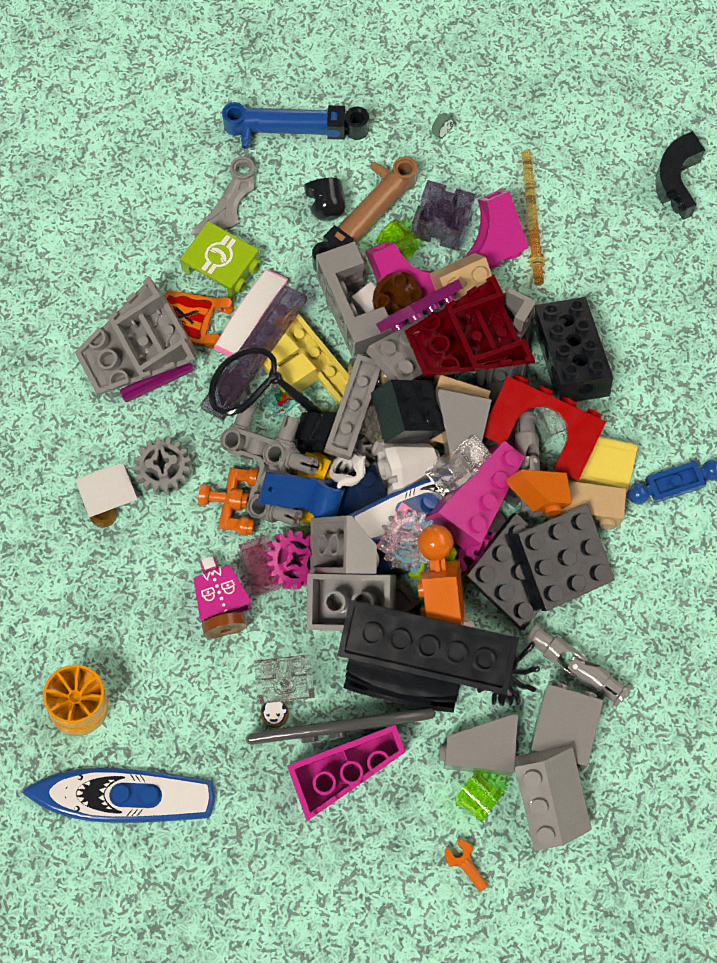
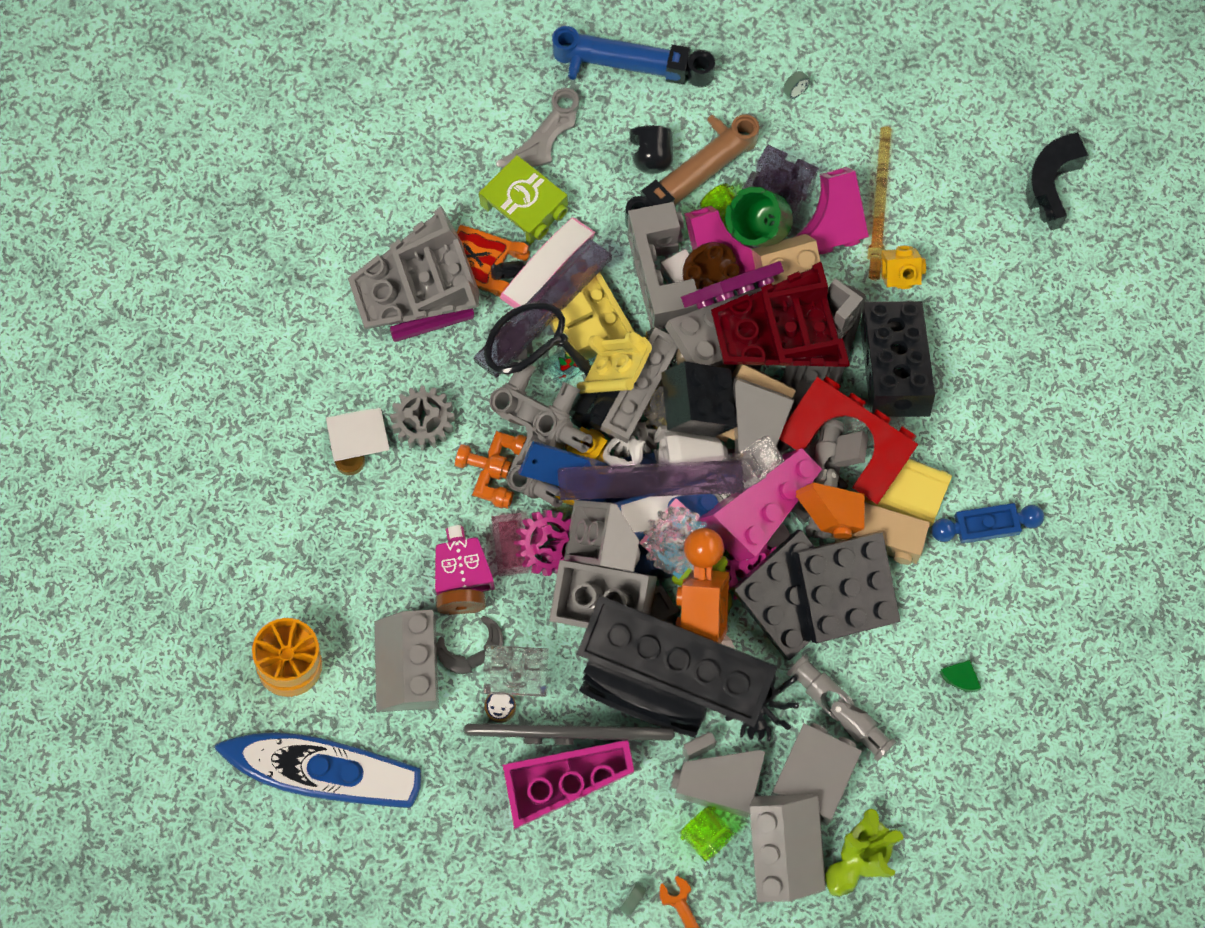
camera: 10 degrees right, 0 degrees up
(183, 686) = (406, 662): none -> light grey slope
(215, 324) = (506, 270): none -> black piece
(235, 682) = (460, 664): none -> dark grey piece
(328, 391) = (616, 364): none -> light yellow piece
(377, 489) = (651, 480): none -> clear purple tile
(422, 866) = (632, 899): none -> sand green tile
(424, 247) = (750, 217): none -> green cylinder
(458, 719) = (699, 746): none -> light grey tile
(547, 435) = (851, 449): none -> light grey tile
(562, 270) = (902, 267): none -> yellow brick
(619, 791) = (863, 854): none -> lime animal
(676, 620) = (961, 676): none -> green tile

